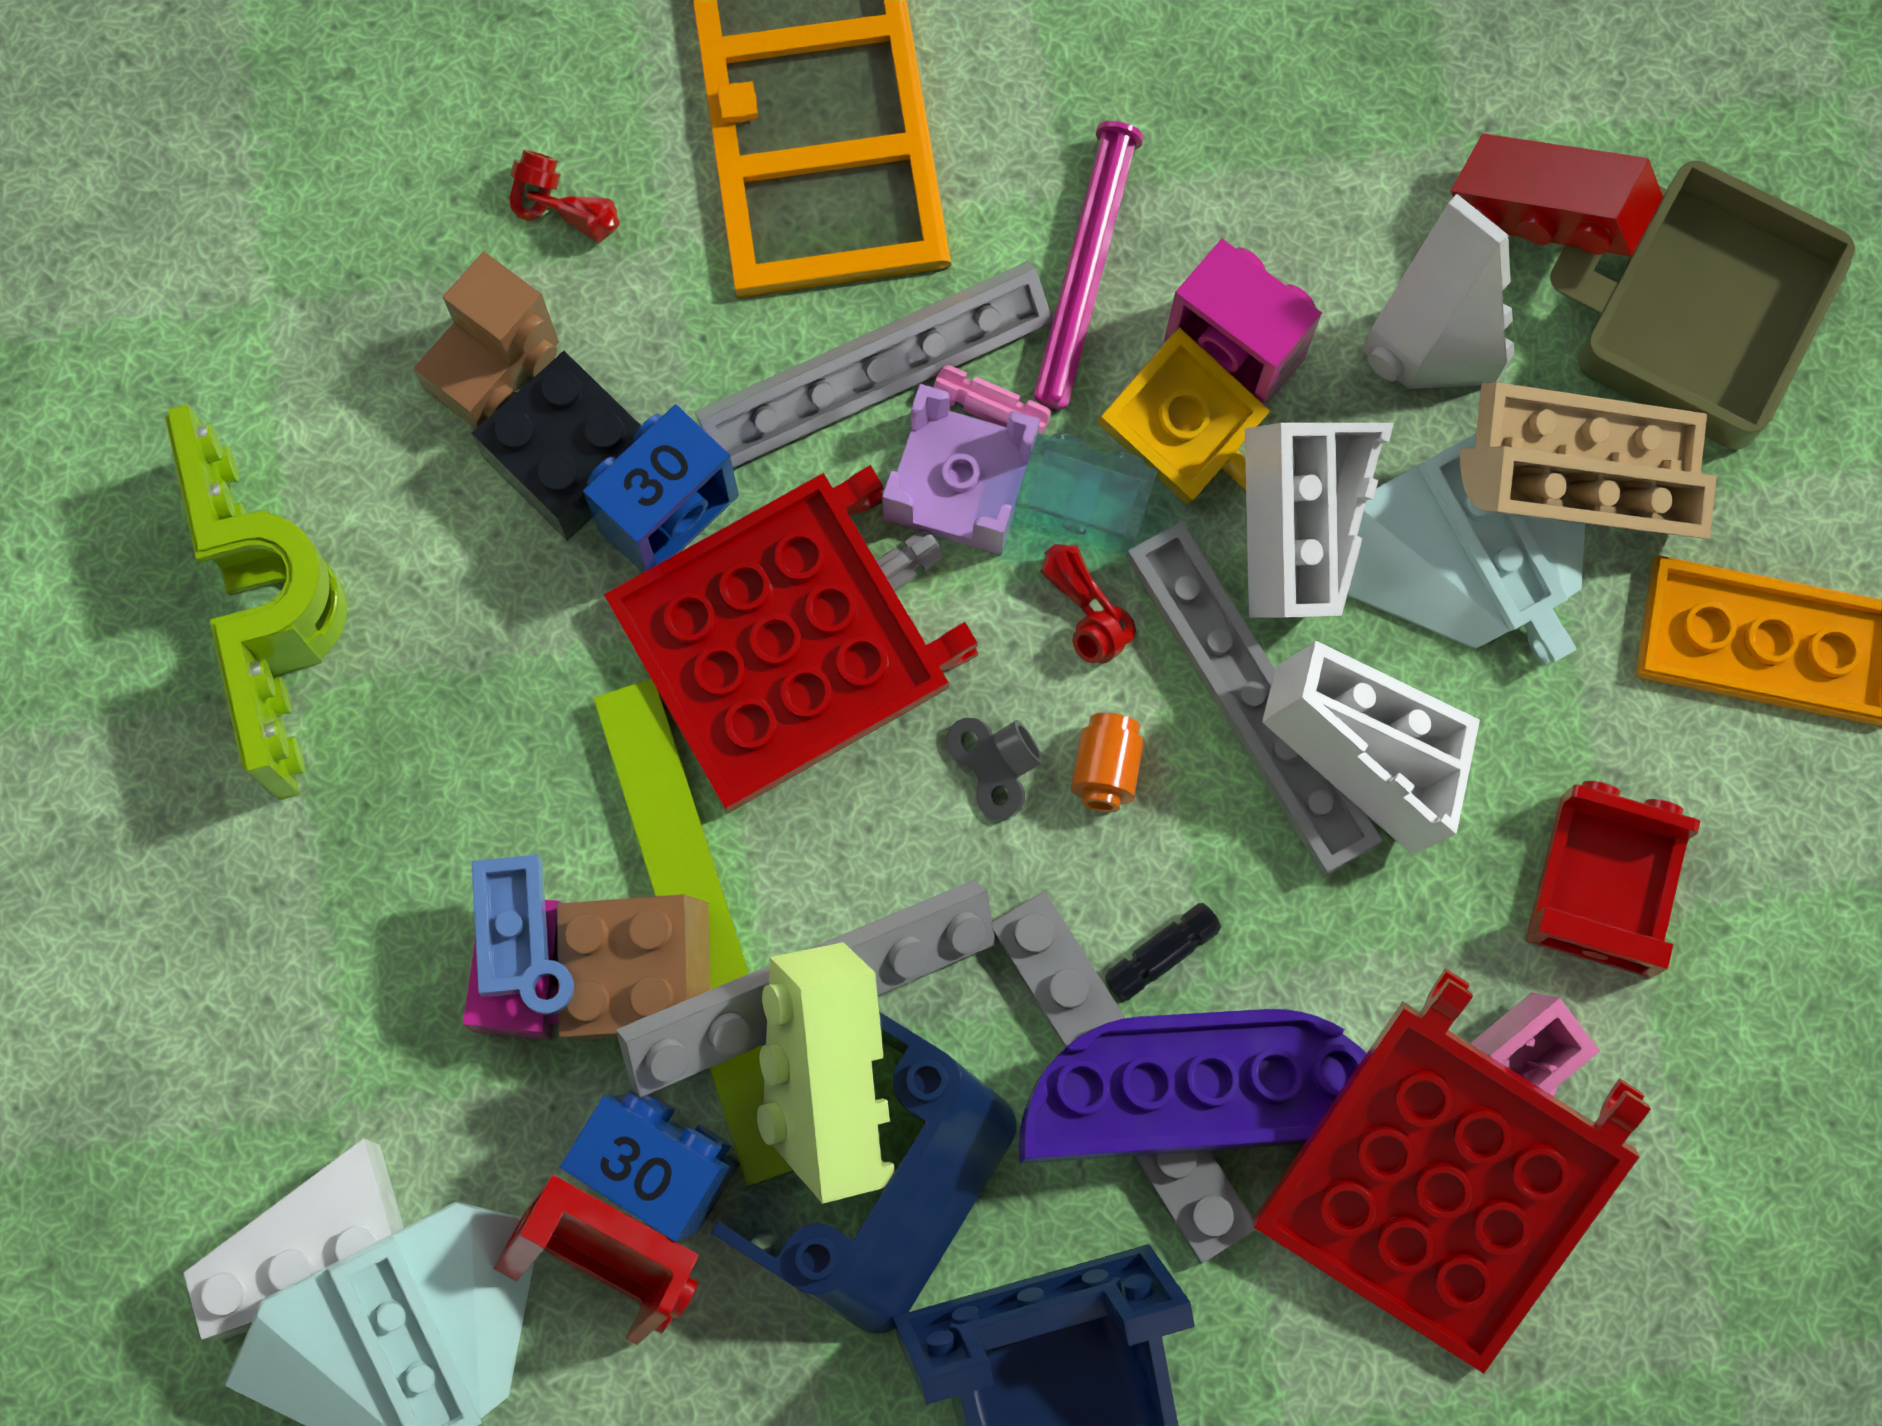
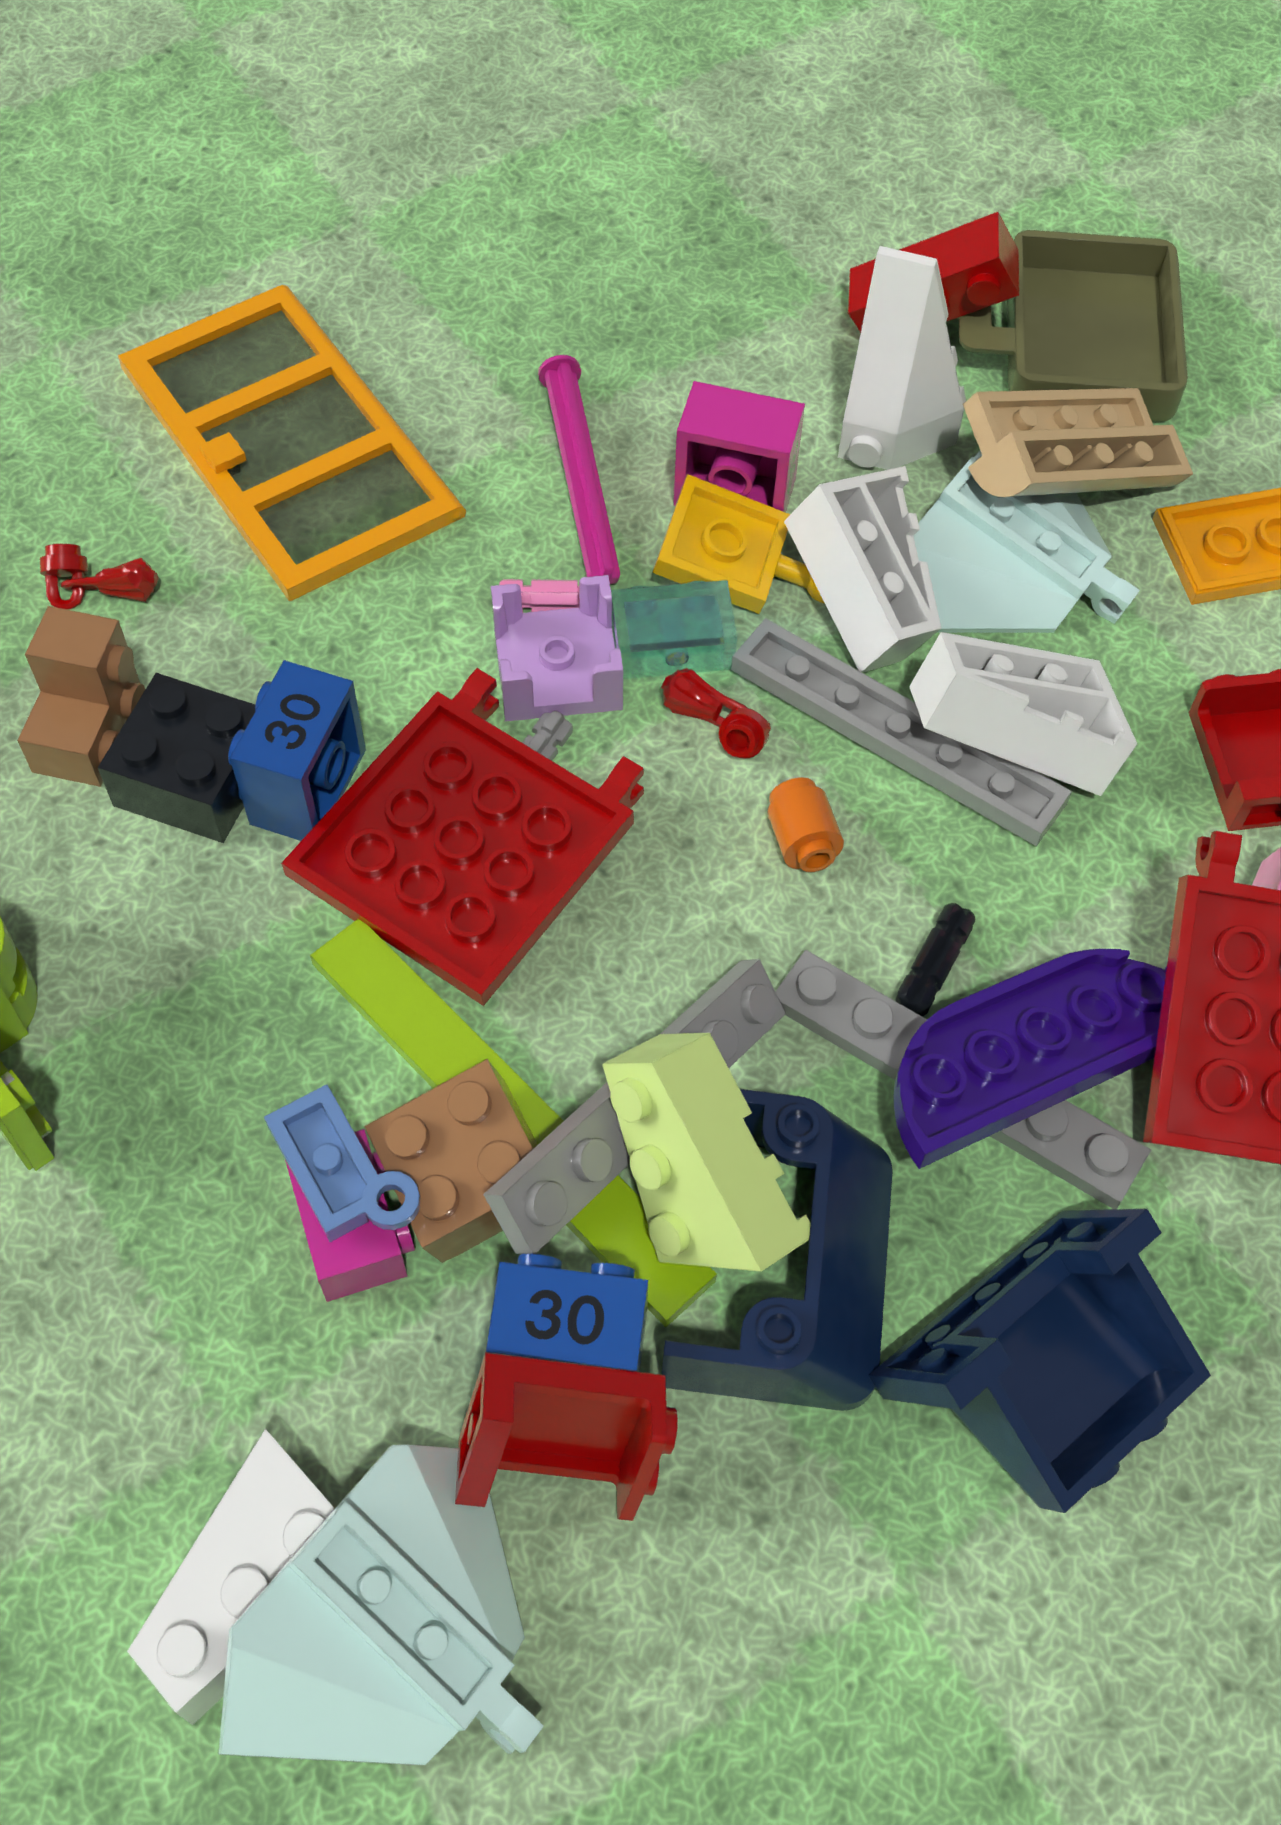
camera: 25 degrees left, 15 degrees down
(877, 364) = (450, 592): light grey plate -> none
(996, 761) = (706, 865): dark grey piece -> none

